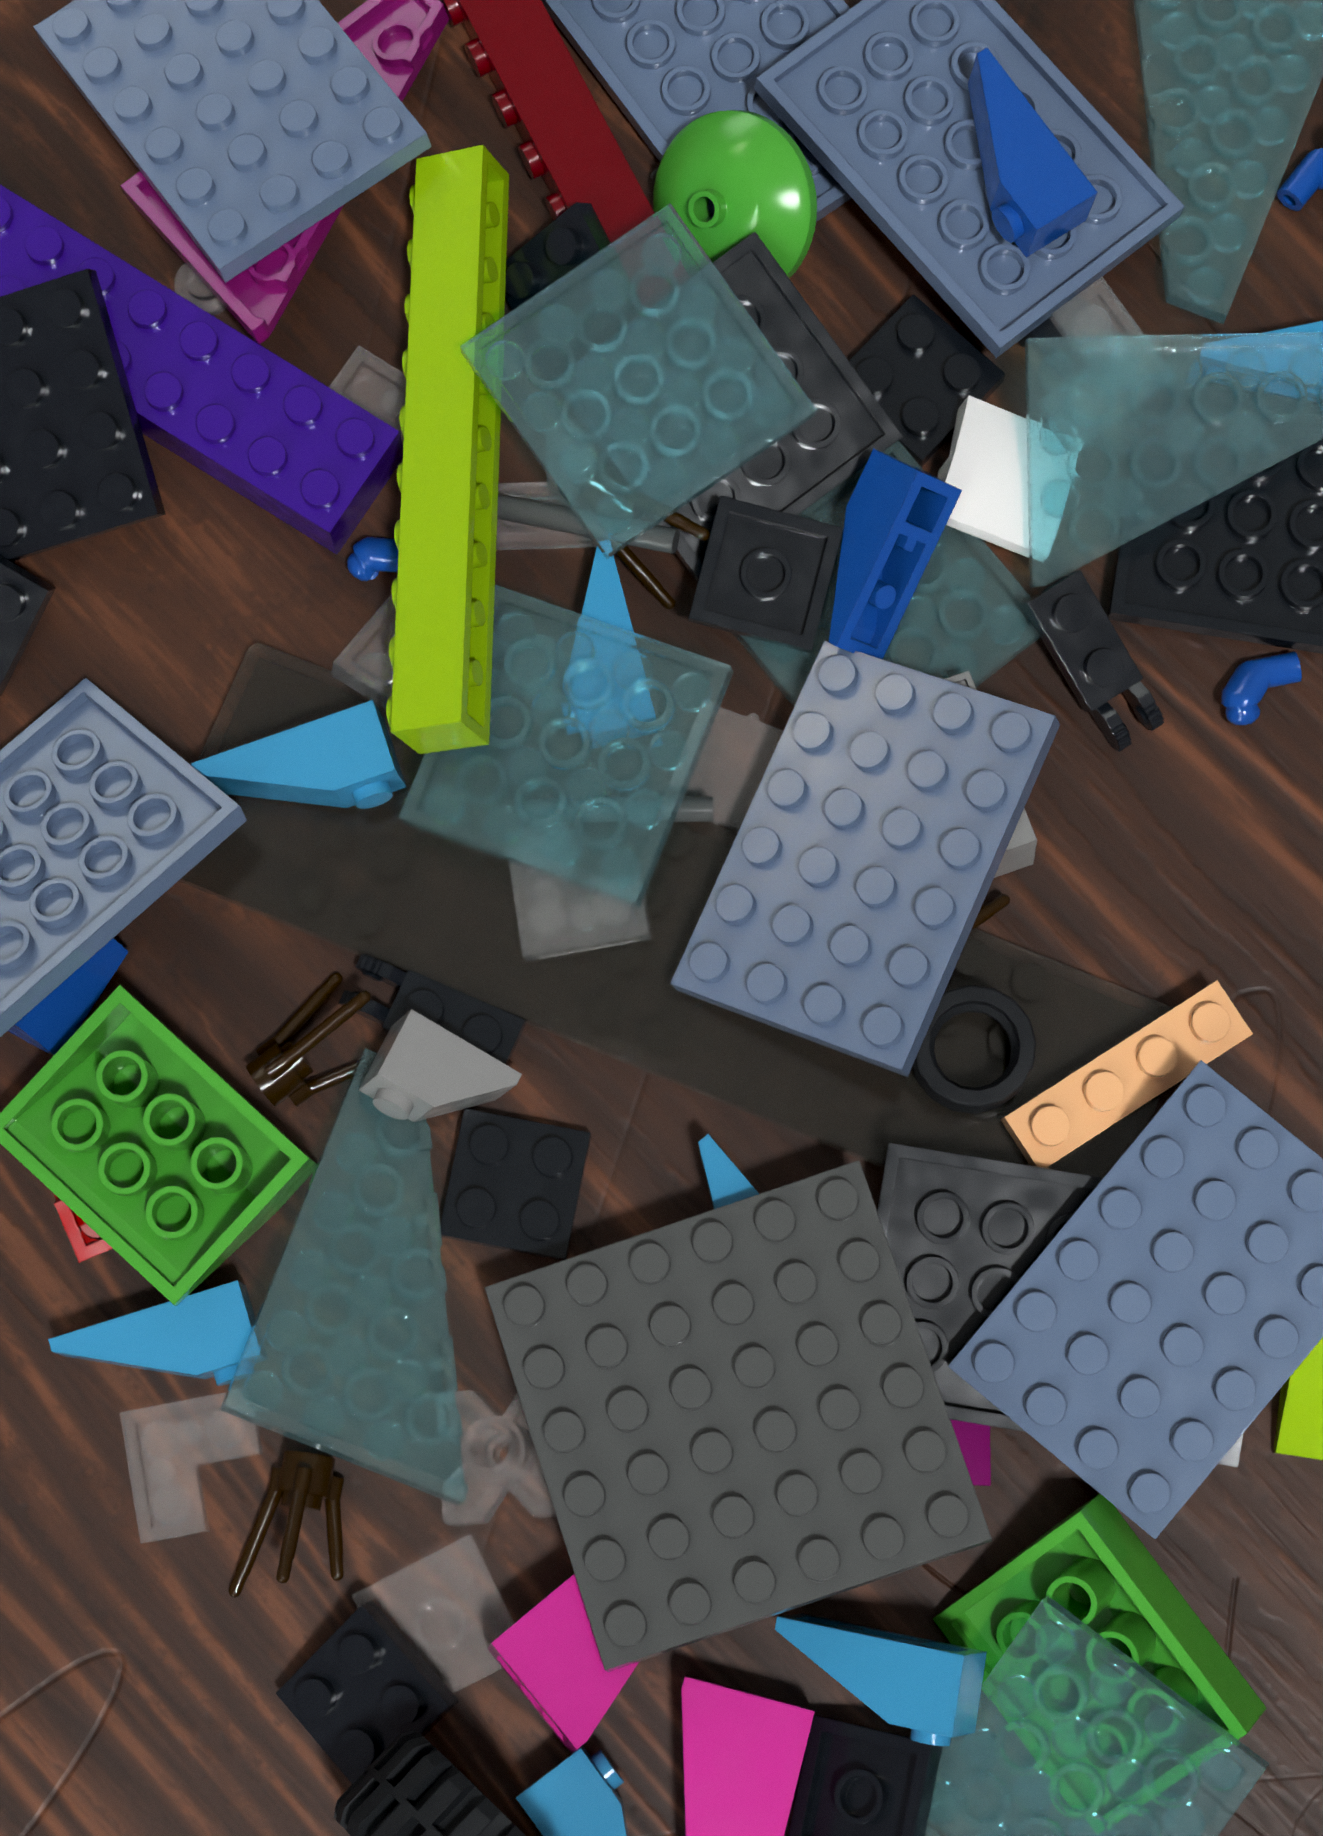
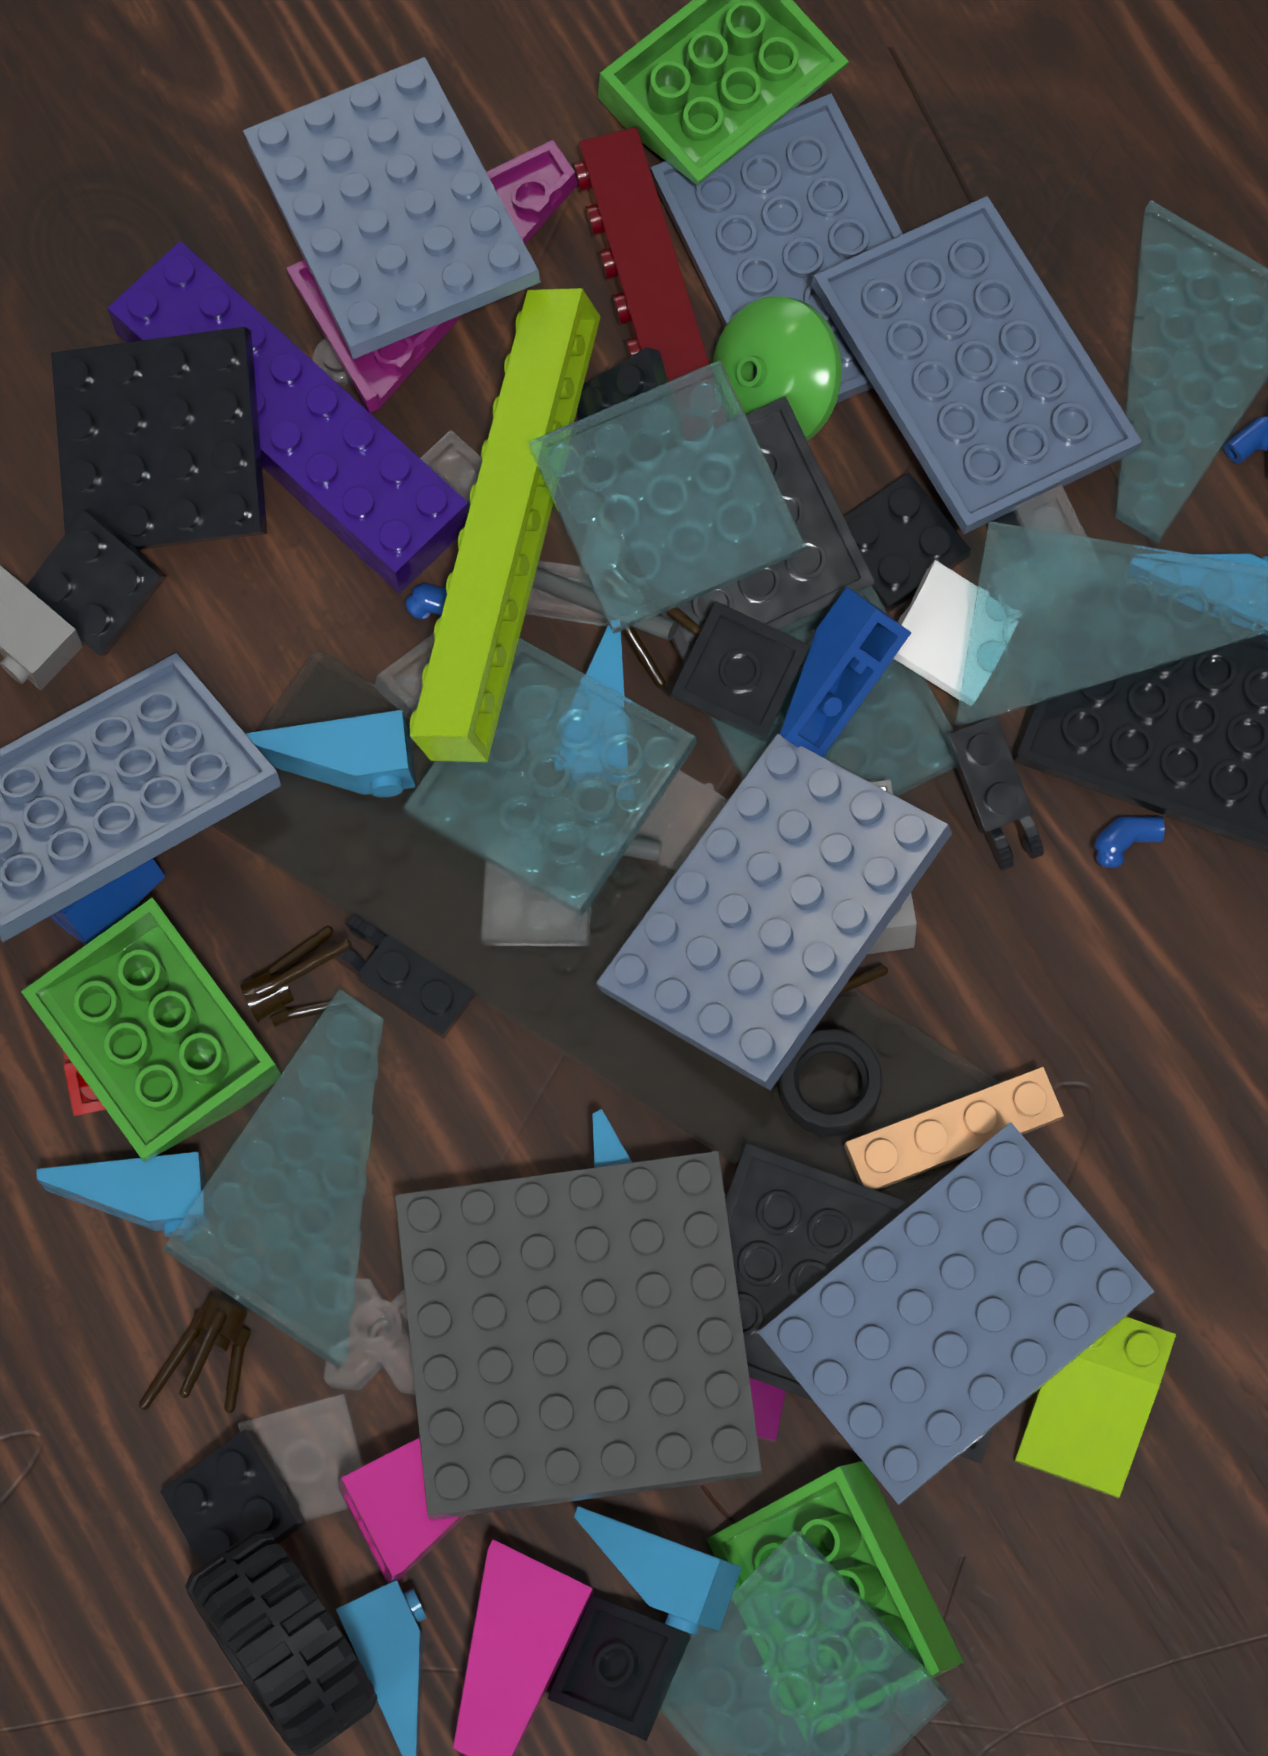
camera: 10 degrees right, 5 degrees down
(164, 1459) = (112, 1280): clear plate -> none
(432, 1072) = (390, 1018): light grey slope -> none
(515, 1184) = (438, 1122): black plate -> none
(1027, 173) = (1017, 393): blue slope -> none

